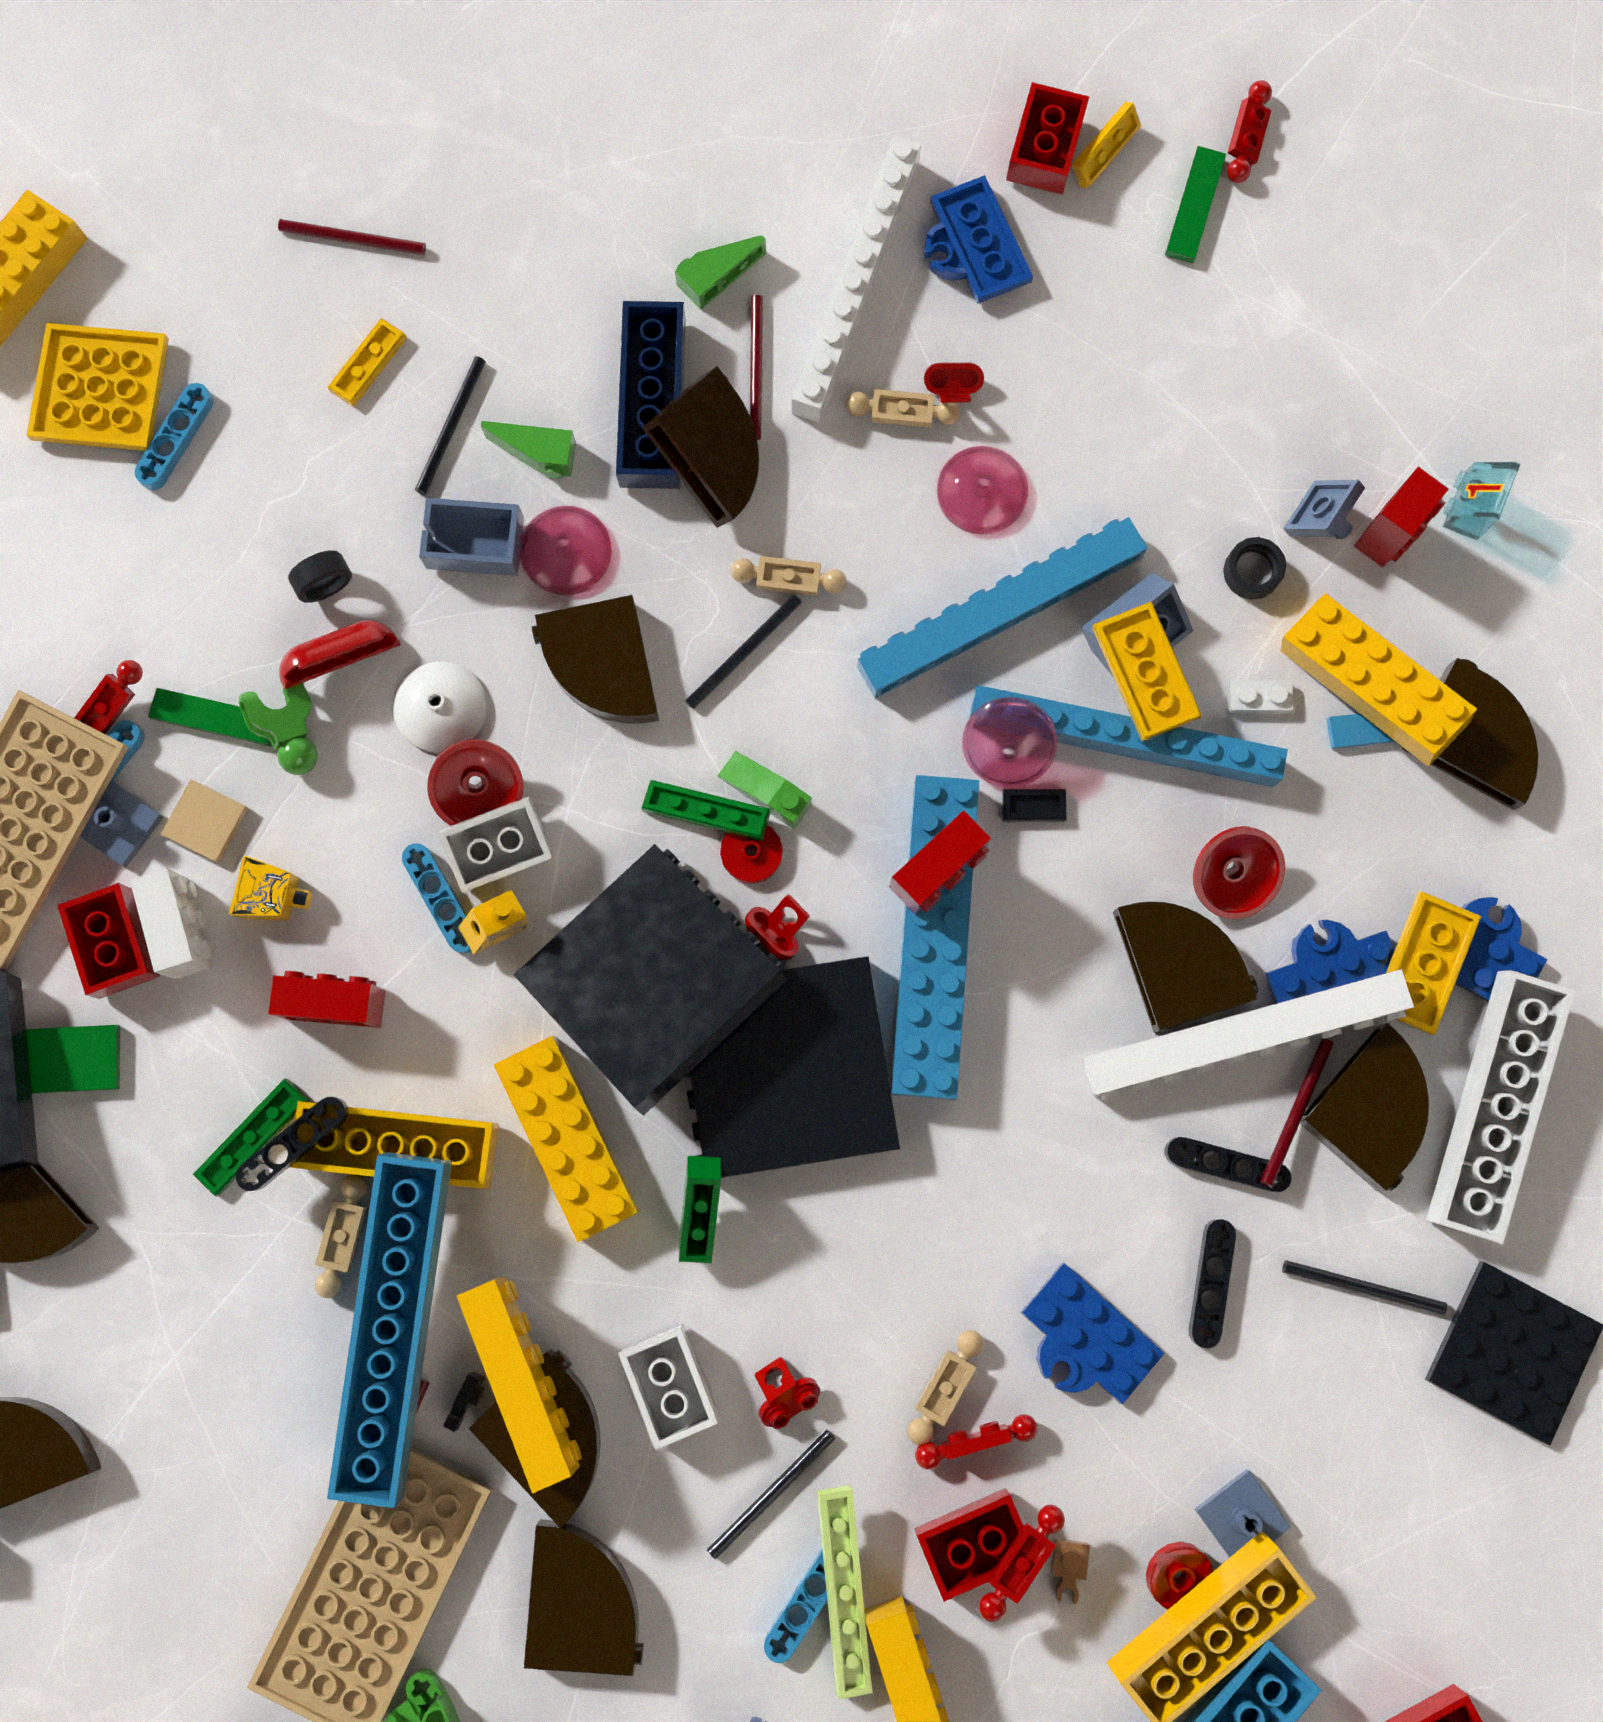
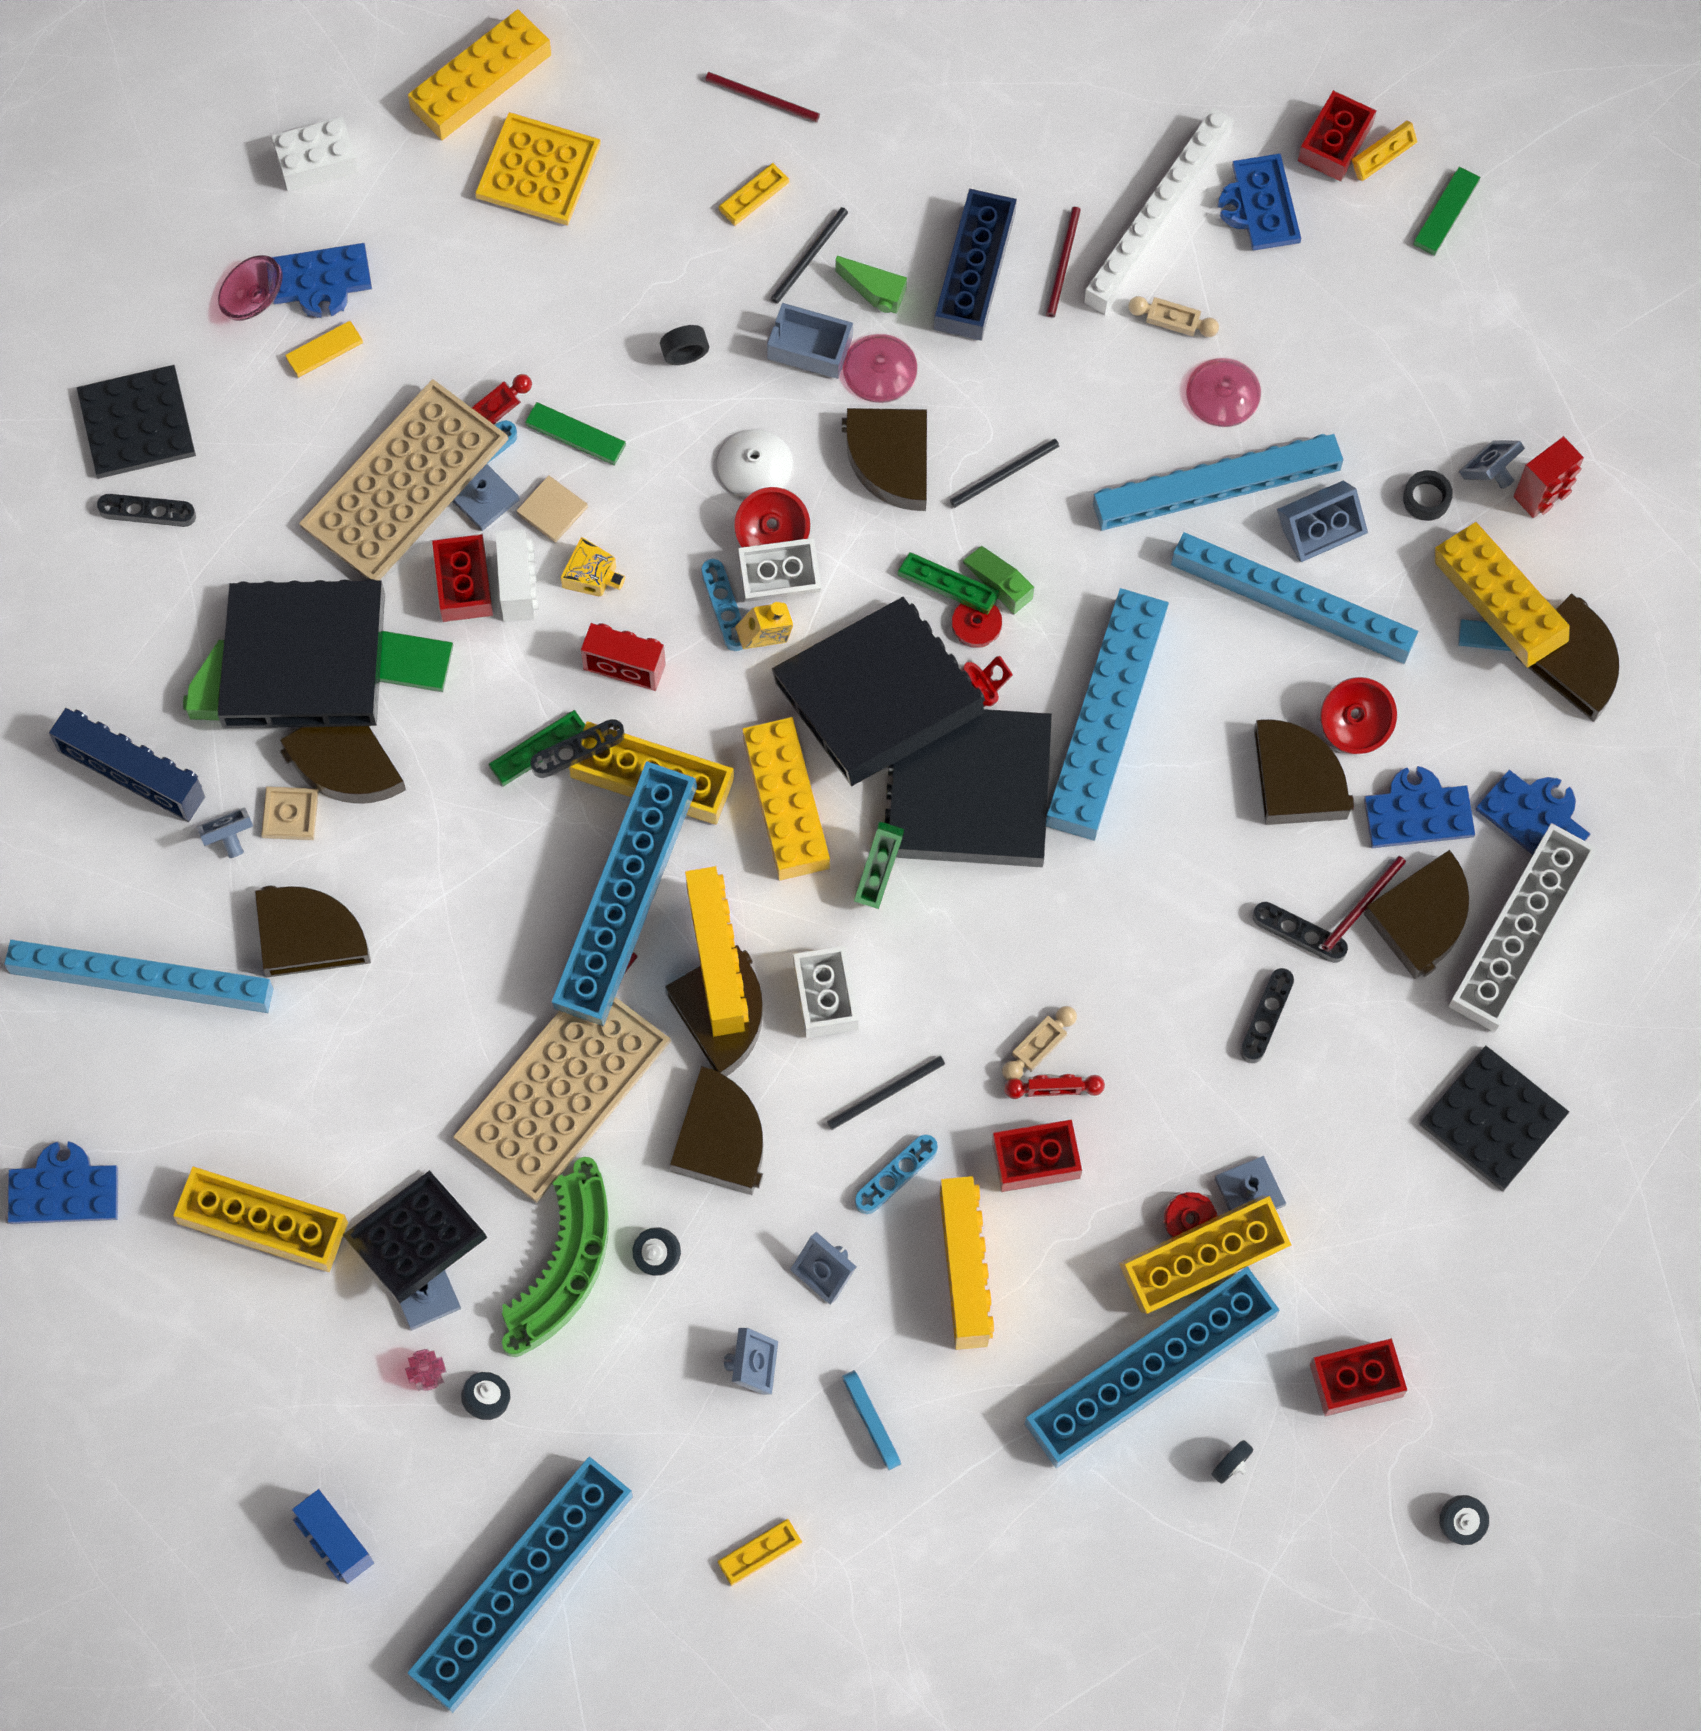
camera: 10 degrees right, 10 degrees down
(168, 433) = (593, 220): dark azure beam -> none
(283, 727) = (631, 450): bright green piece -> none
(335, 651) = (684, 403): red brick -> none
(341, 1236) = (594, 833): tan plate -> none
(469, 1395) = (667, 967): black plate -> none
(710, 445) = (1013, 310): dark brown brick -> none
(715, 269) = (1049, 180): bright green slope -> none
(788, 576) = (1053, 423): tan plate -> none
(788, 1398) = (913, 1024): red bracket -> none
(844, 1592) = (927, 1167): yellowish green plate -> none
(940, 863) = (1122, 649): red brick -> none
(954, 381) = (1219, 303): red bracket -> none
(1013, 725) = (1206, 565): clear pink dish -> none
(1021, 1563) = (1069, 1164): red plate -> none
(1034, 805) = (1209, 636): black tile -> none
(1069, 1563) = (1106, 1193): medium nougat plate -> none
(1088, 1337) = (1160, 1033): blue plate -> none
(1146, 671) = (1318, 547): yellow tile -> none
(1248, 1032) = (1335, 833): white brick -> none
(1249, 131) = (1503, 164): red plate -> none
(1260, 696) = (1409, 593): white plate -> none
(1364, 1287) = (1387, 1045): black piece -> none
(1432, 957) = (1491, 813): yellow tile -> none
(1479, 497) = (1619, 478): clear light blue slope -> none

